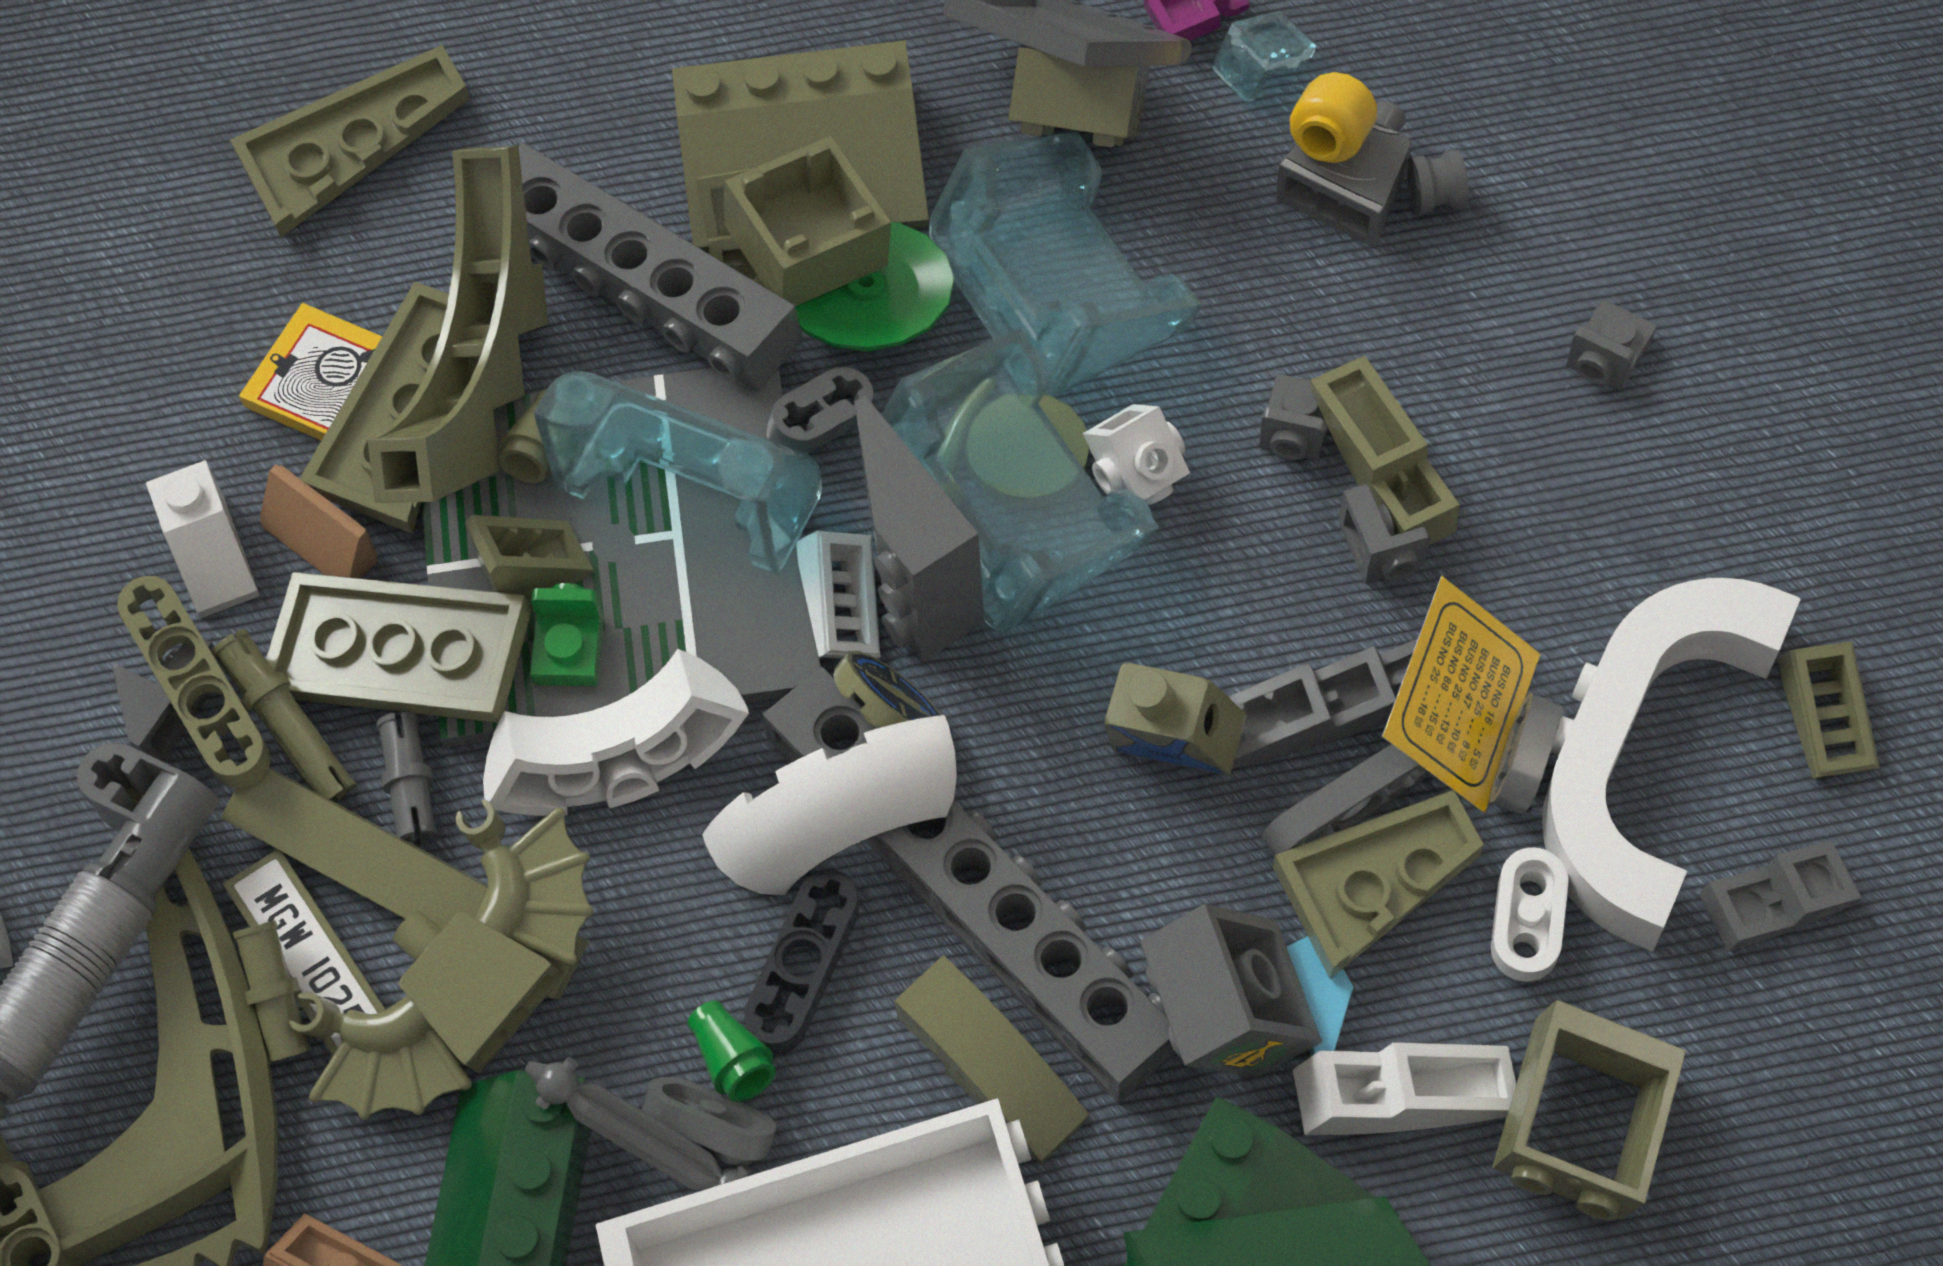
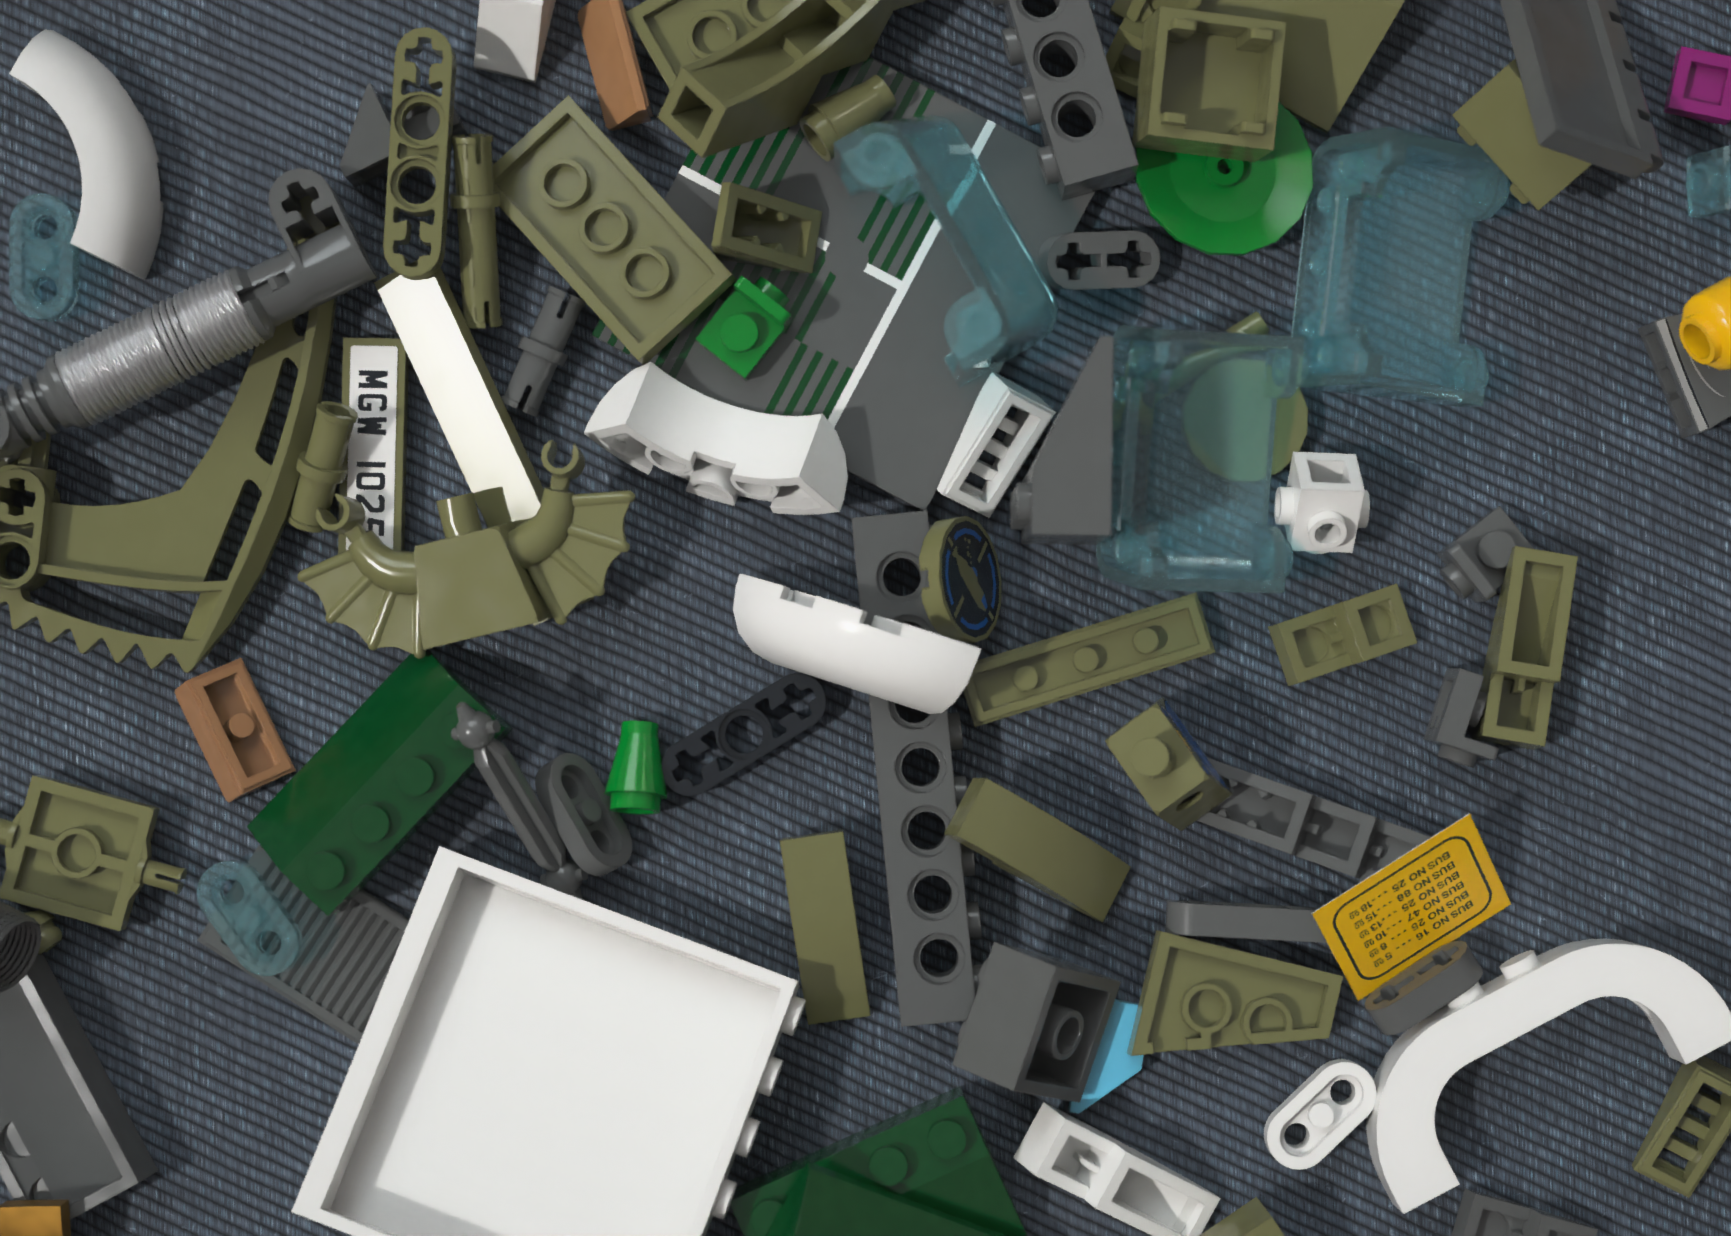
camera: 30 degrees right, 25 degrees up
(1044, 708) = (1087, 659): none -> olive tile
(1118, 861) = (1037, 848): none -> olive slope
(1235, 548) = (1342, 634): none -> olive slope

